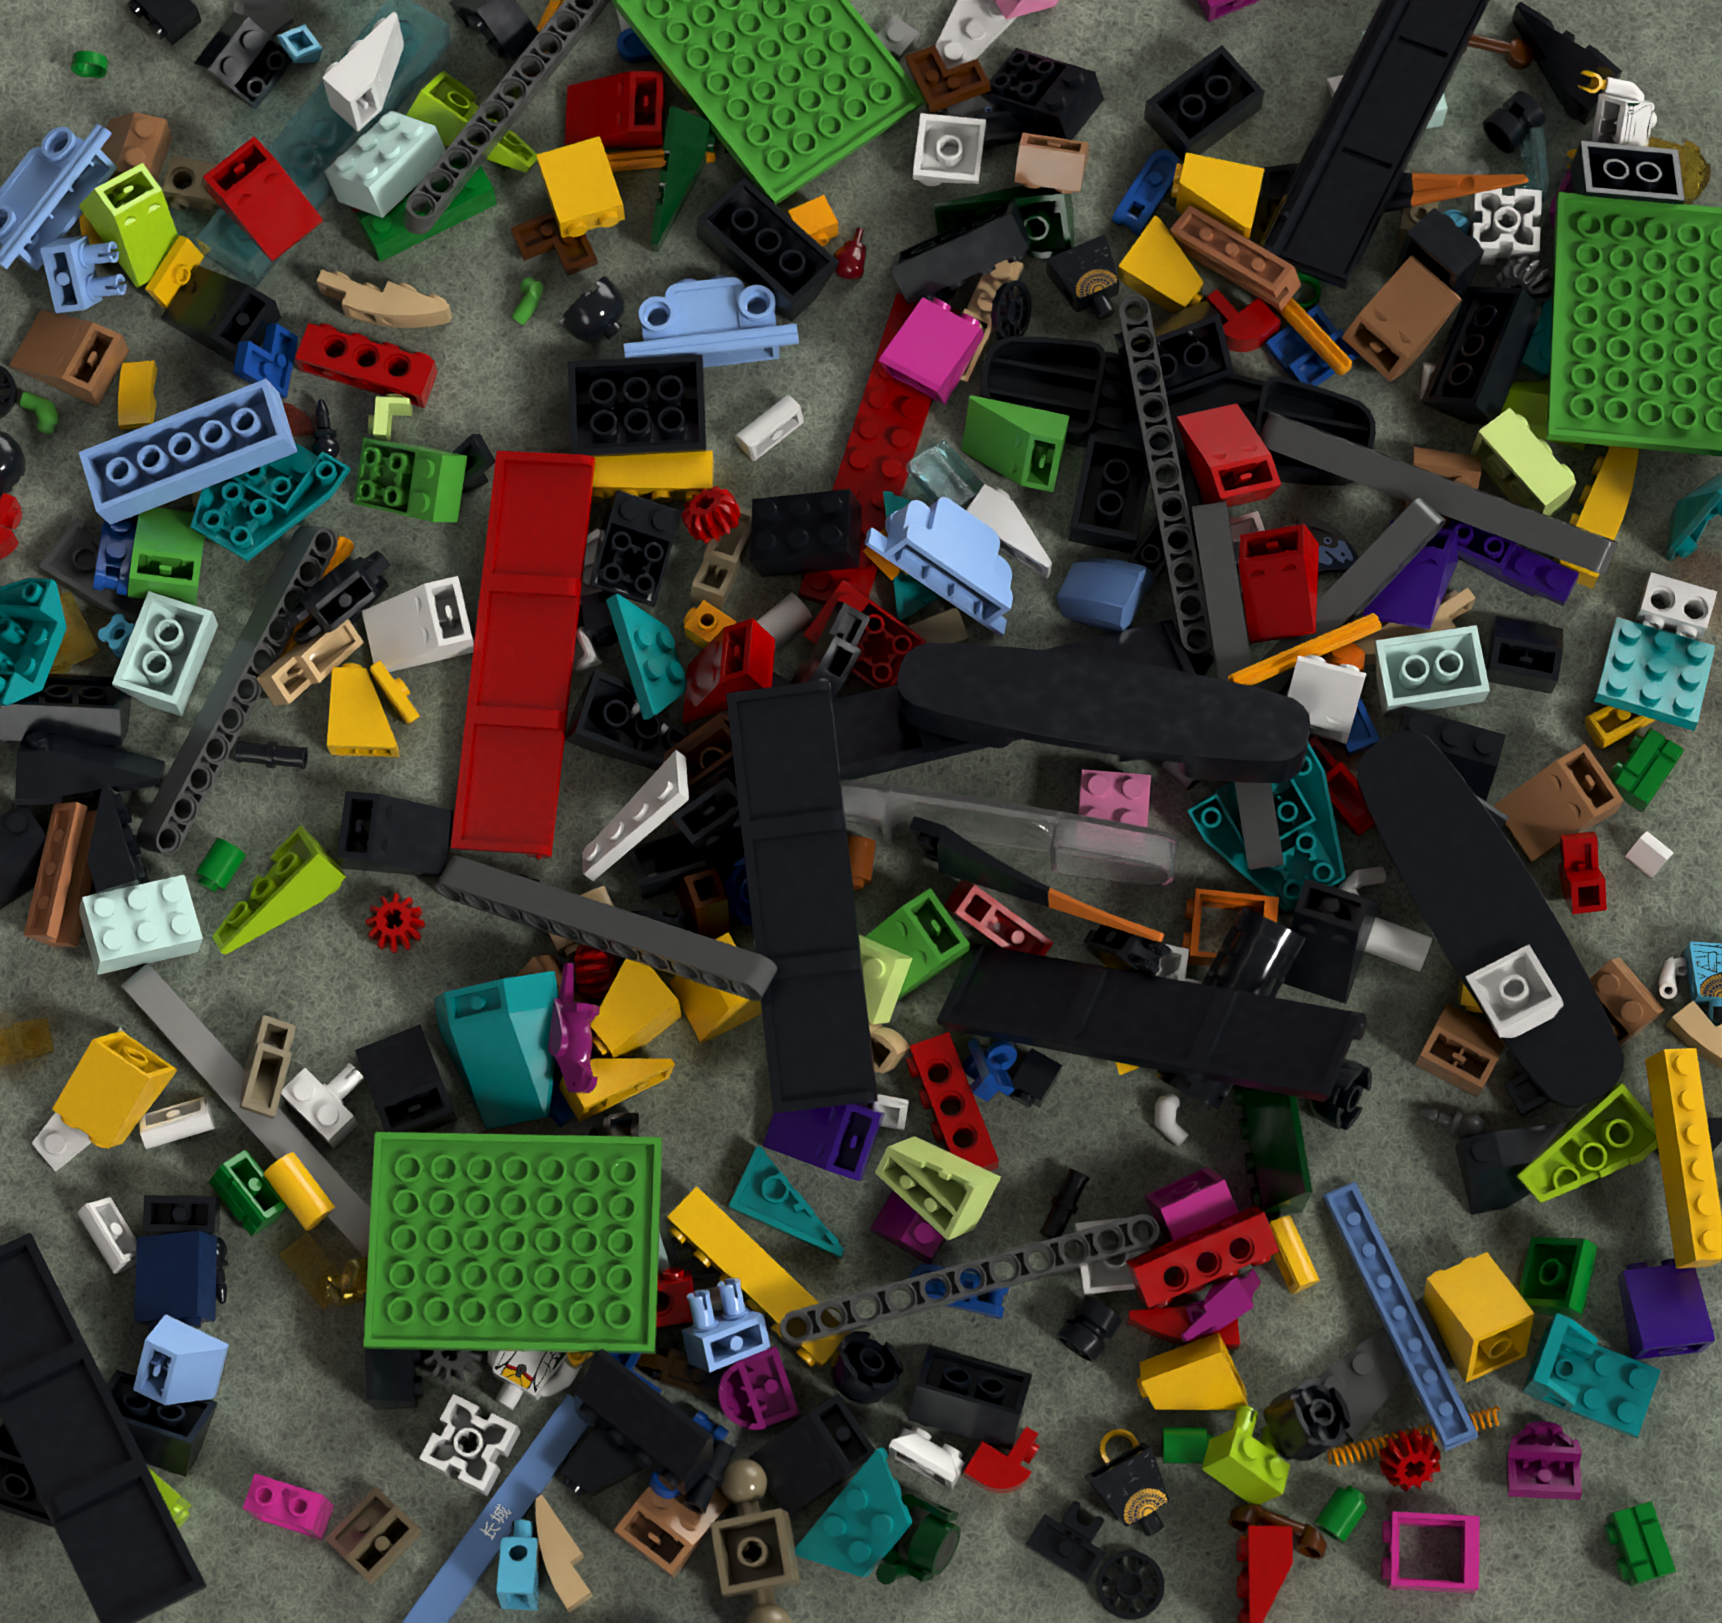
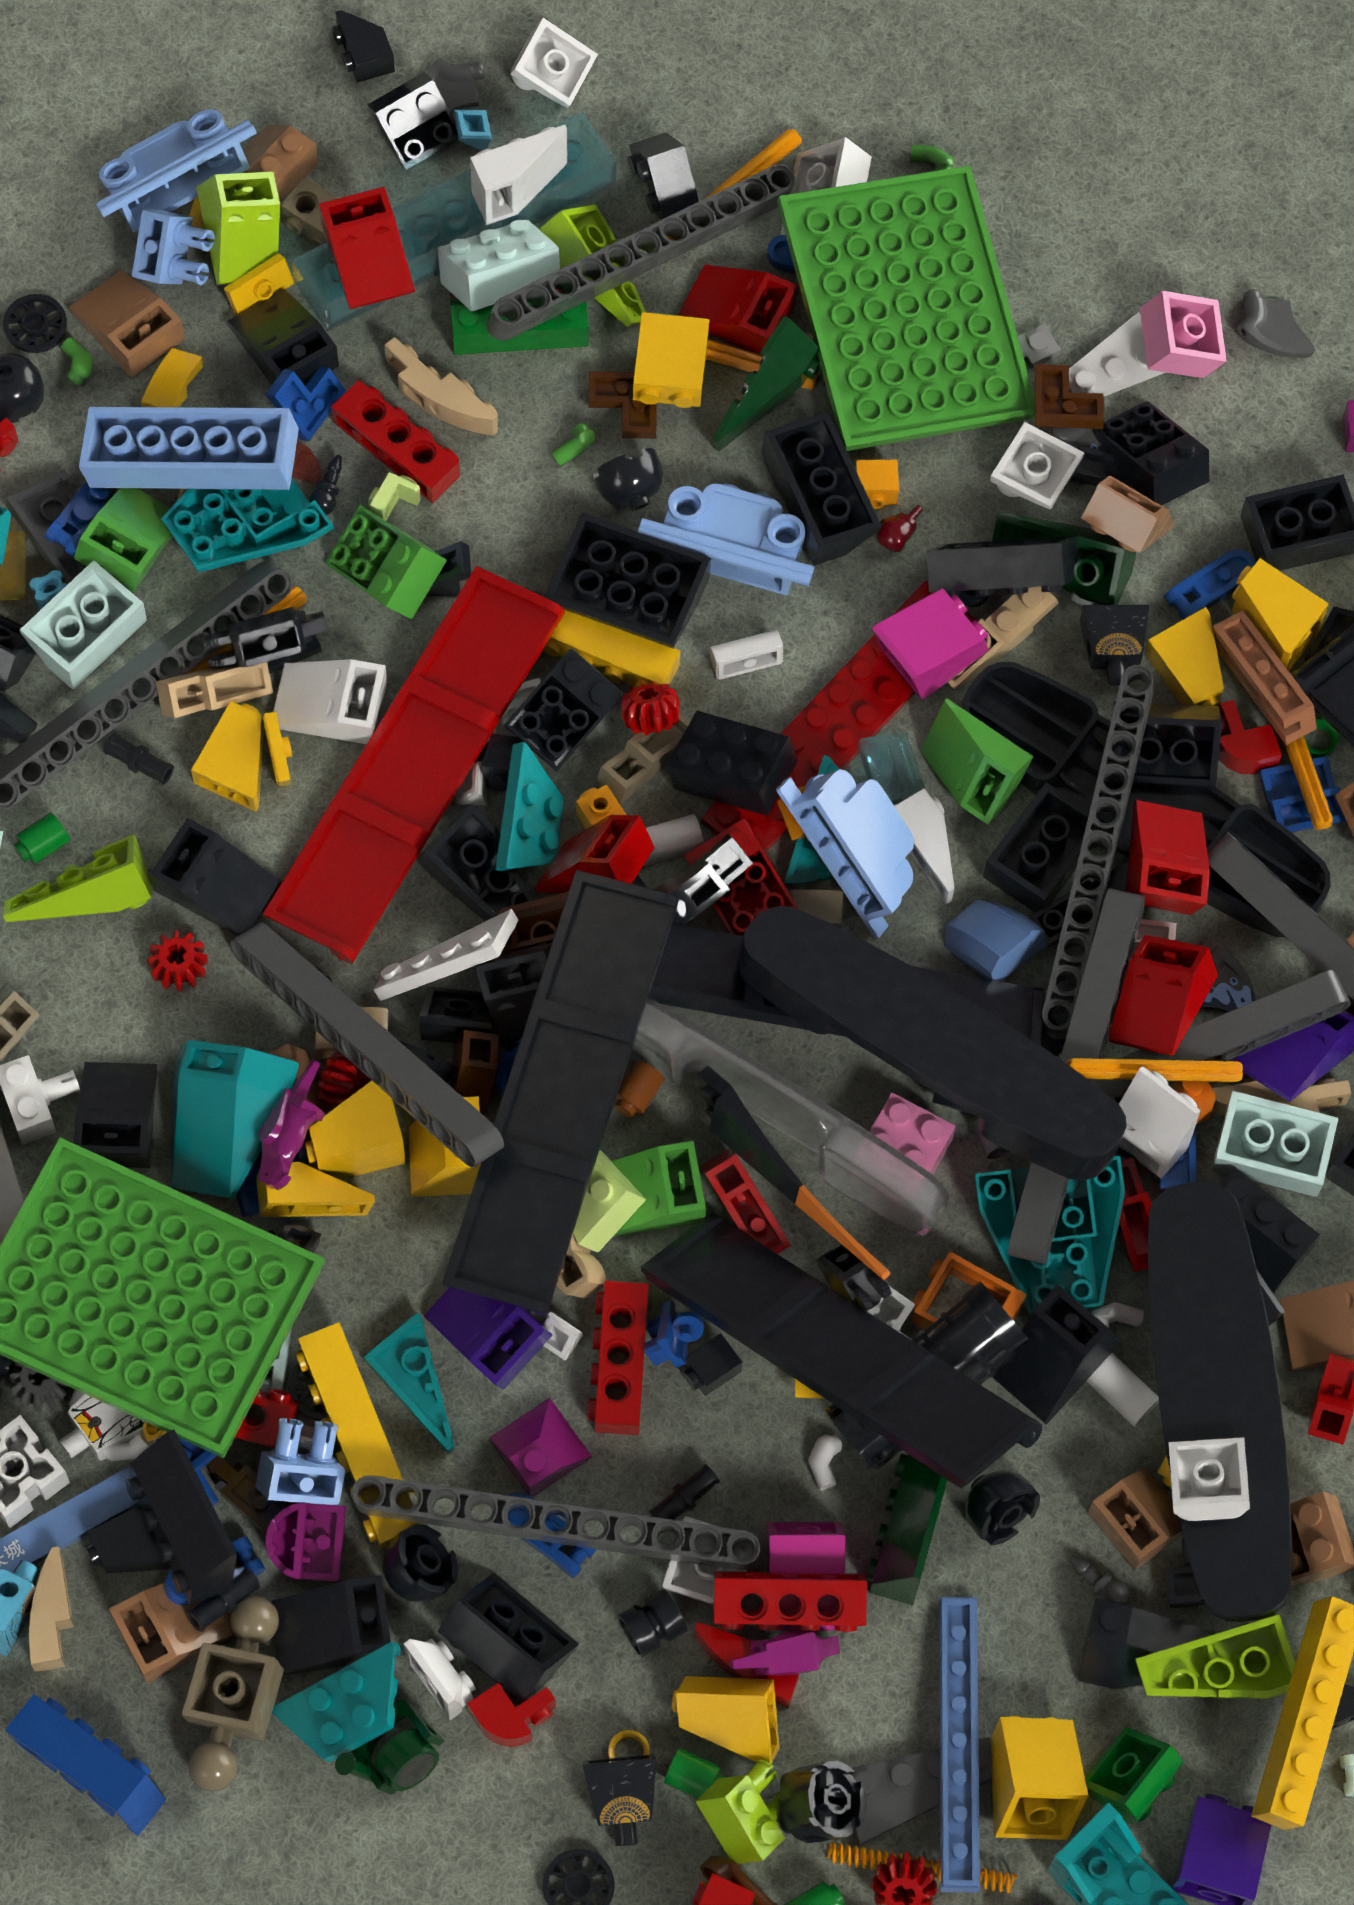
camera: 20 degrees right, 5 degrees down
(84, 70) = (267, 73): green piece -> none
(938, 1185) = (569, 1422): yellowish green wedge -> none
(1011, 309) = (1026, 638): black wheel -> none
(1068, 1543) = (538, 1818): black plate -> none
(1292, 1256) = (881, 1639): yellow brick -> none

